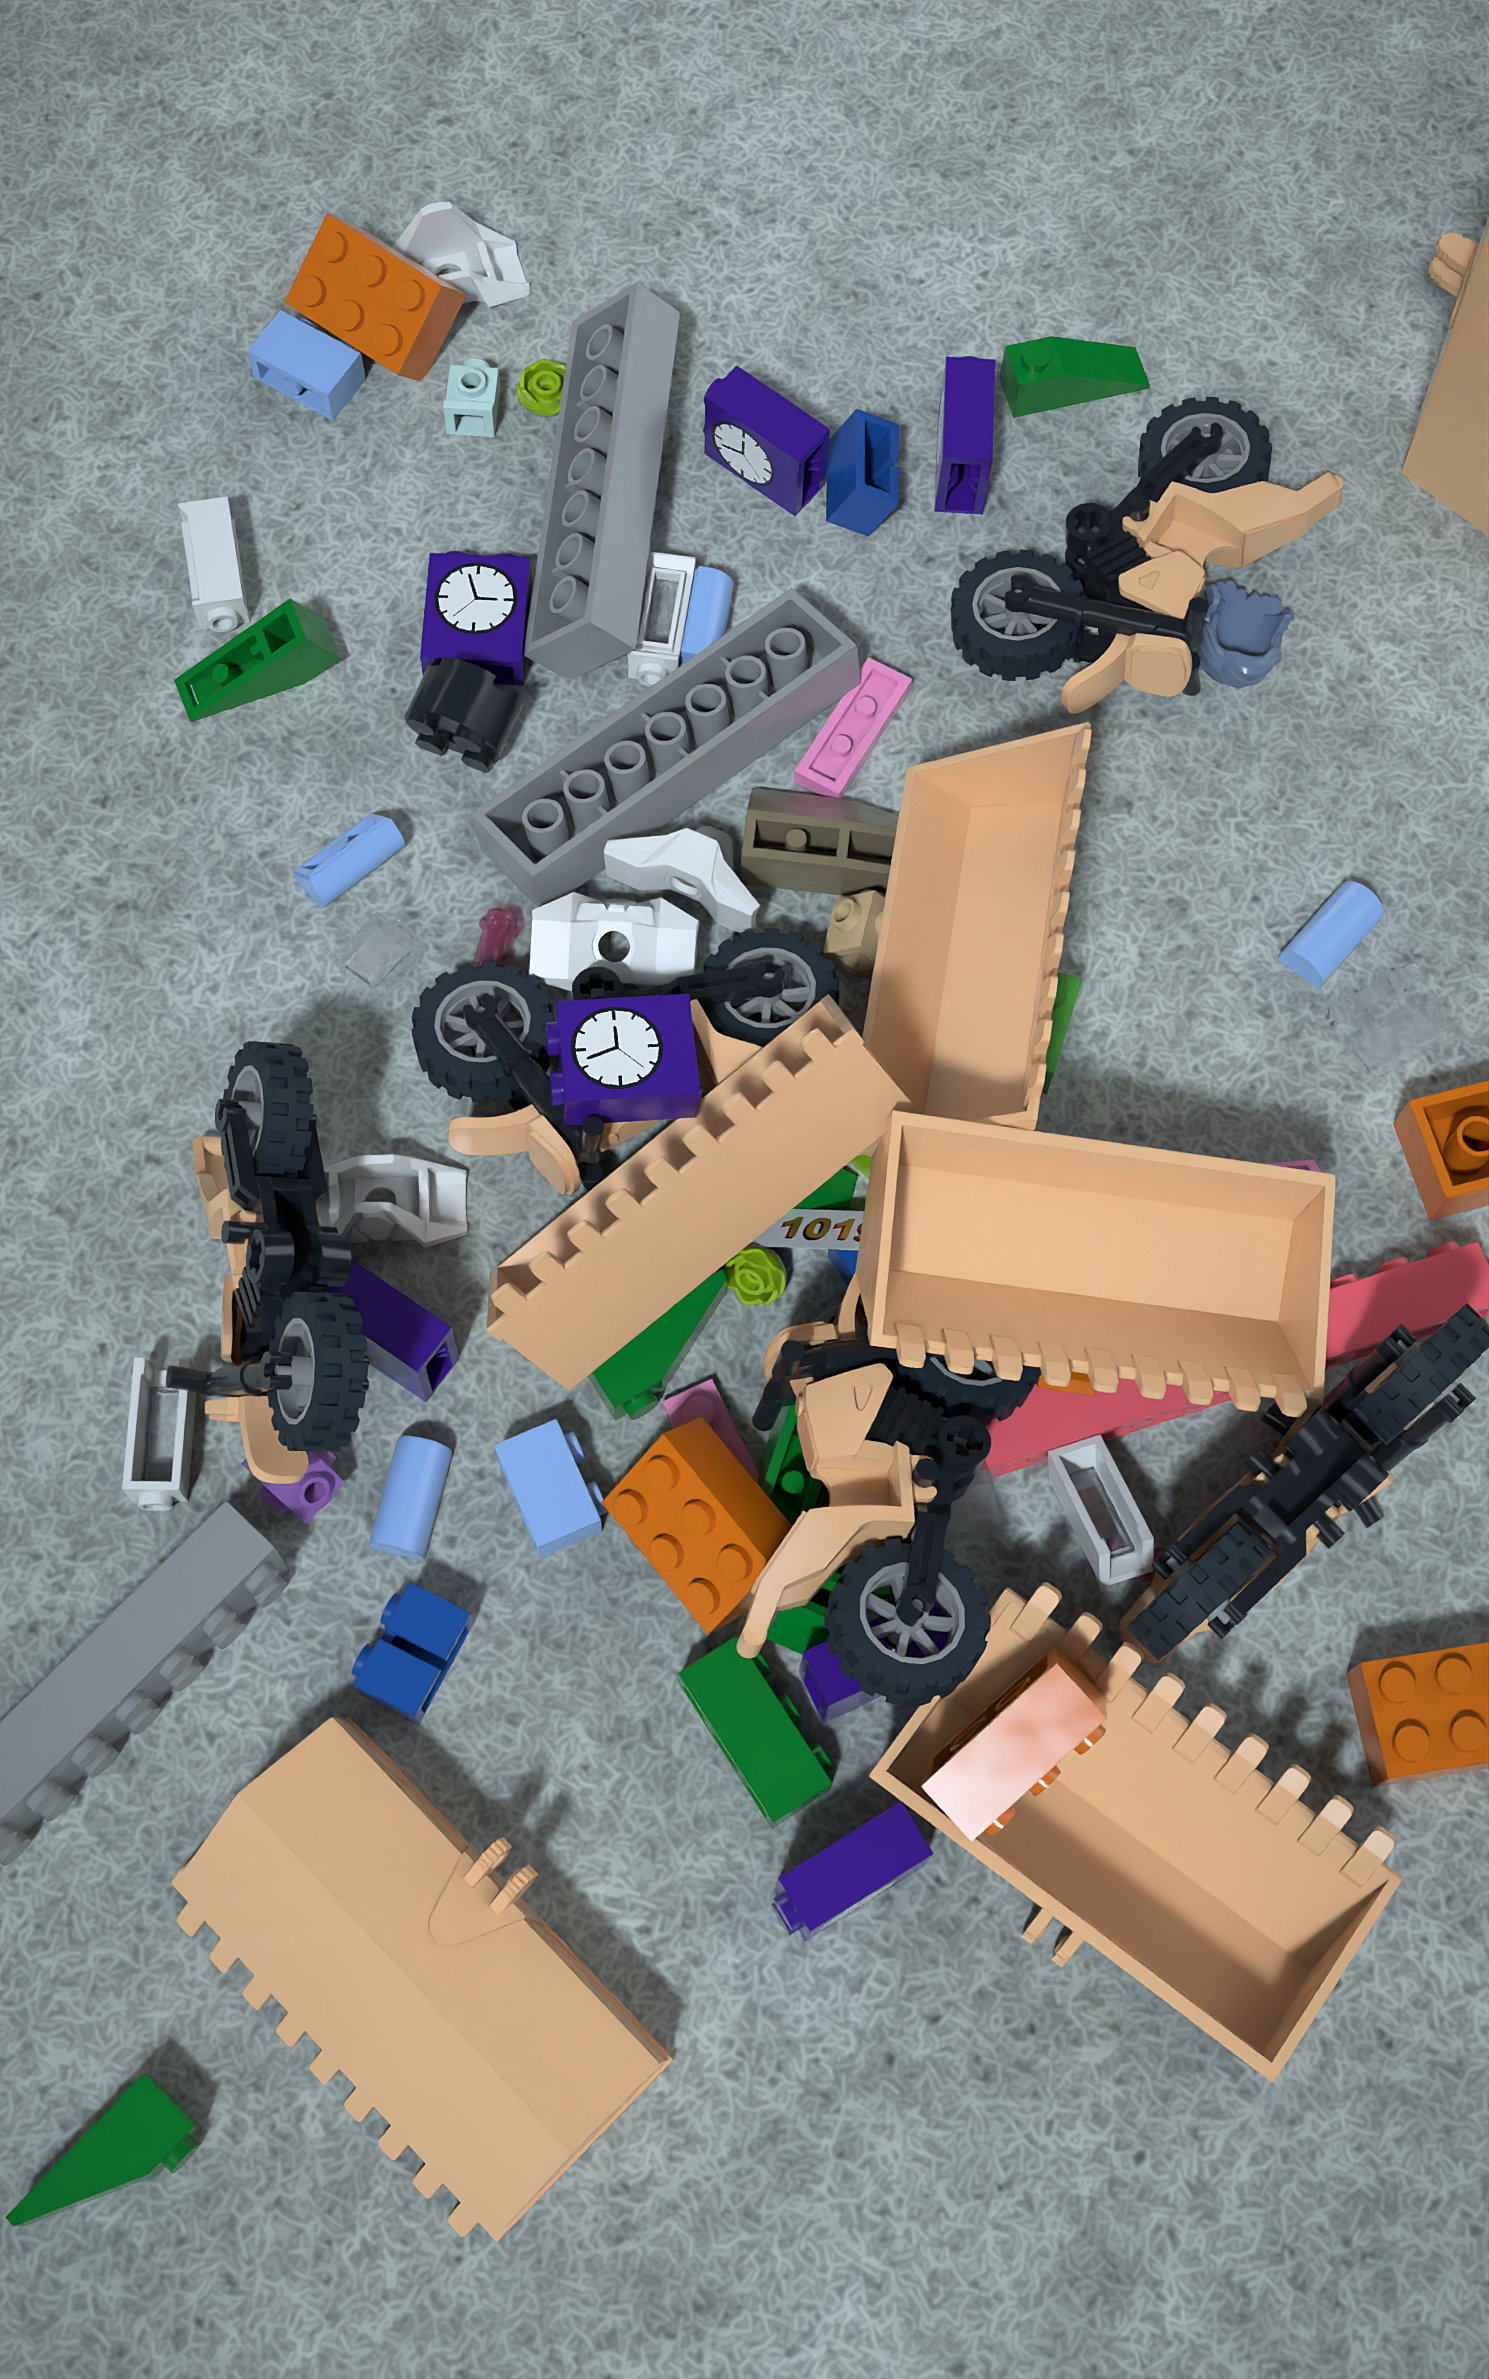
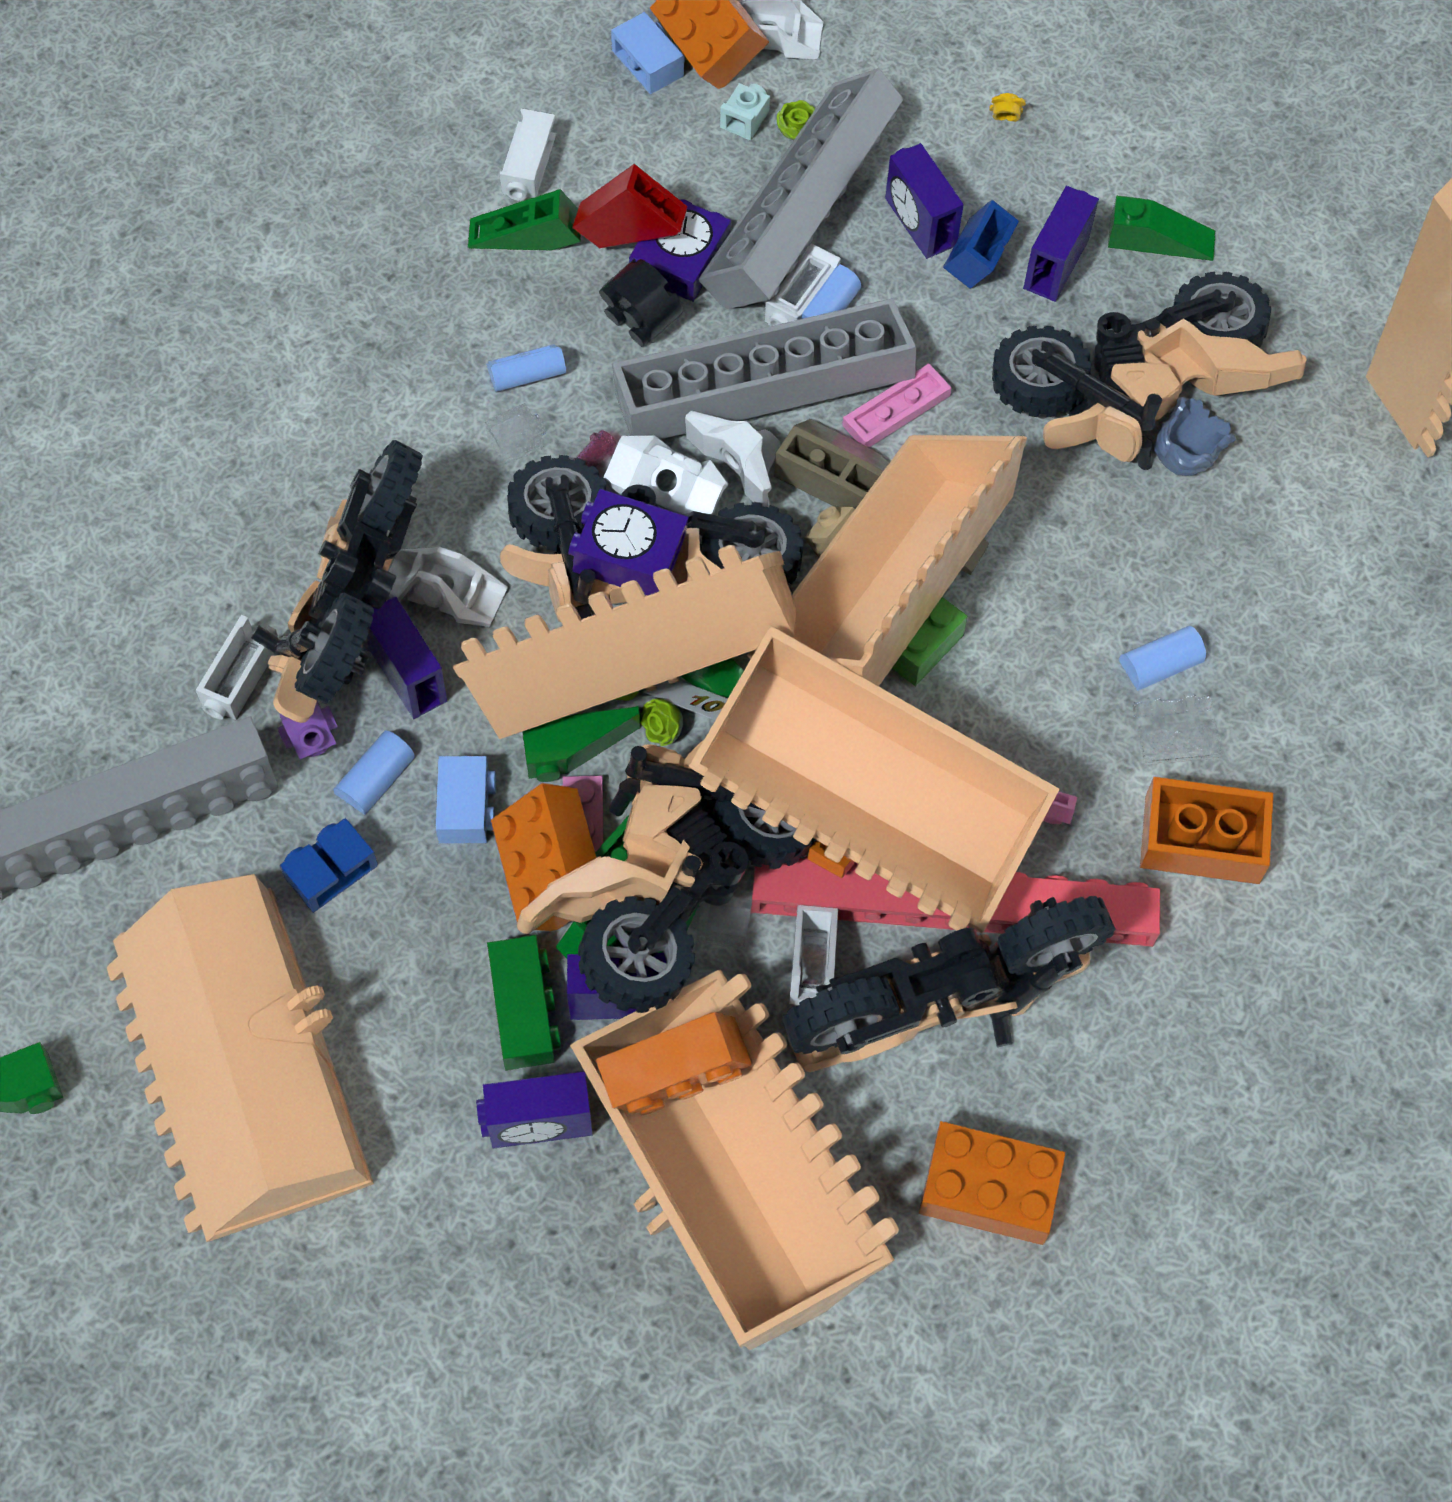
camera: 25 degrees right, 5 degrees down
(395, 595) = (629, 211): none -> red slope
(806, 275) = (1007, 107): none -> yellow plate

